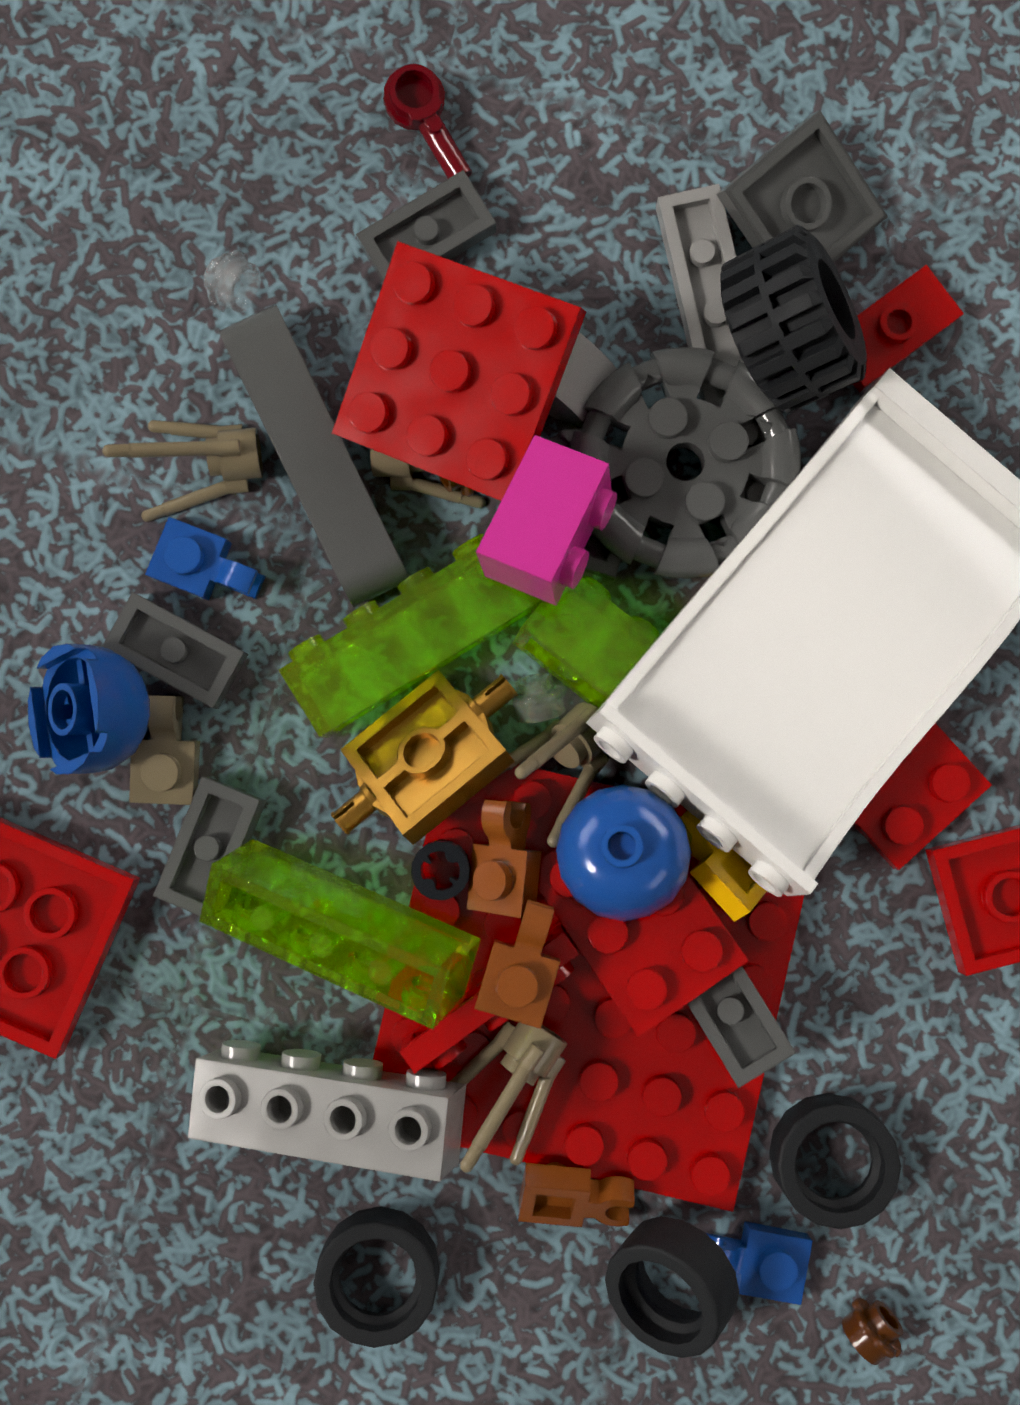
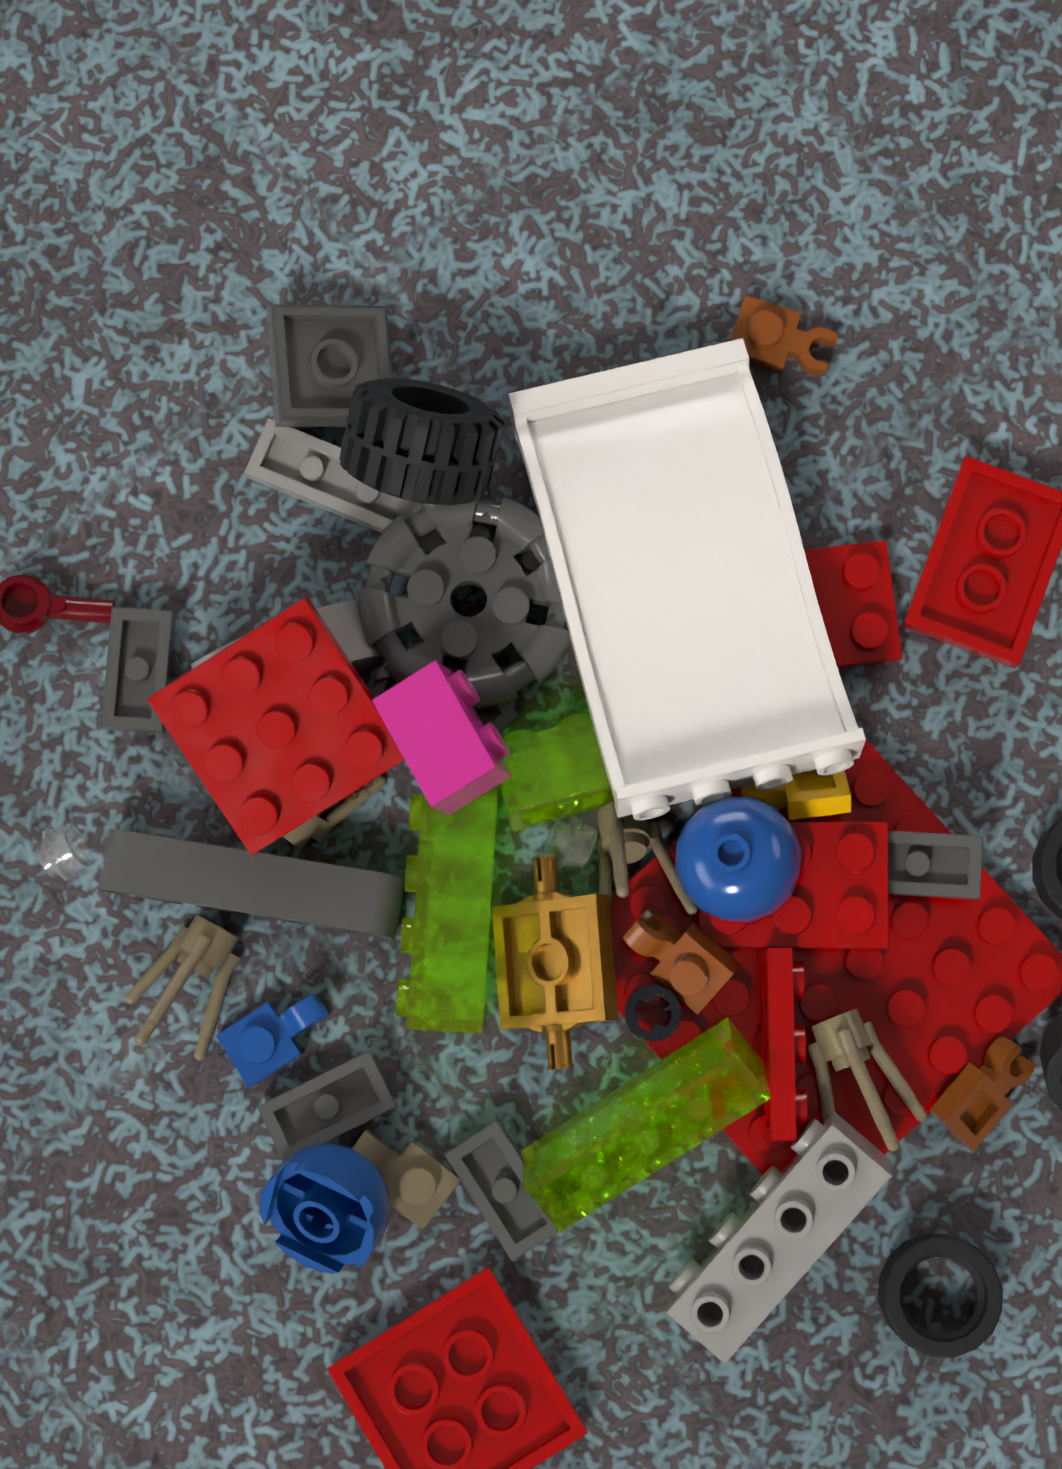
camera: 50 degrees left, 5 degrees down
(519, 975) = (777, 1003): dark orange plate -> none
(904, 322) = (478, 352): red plate -> none

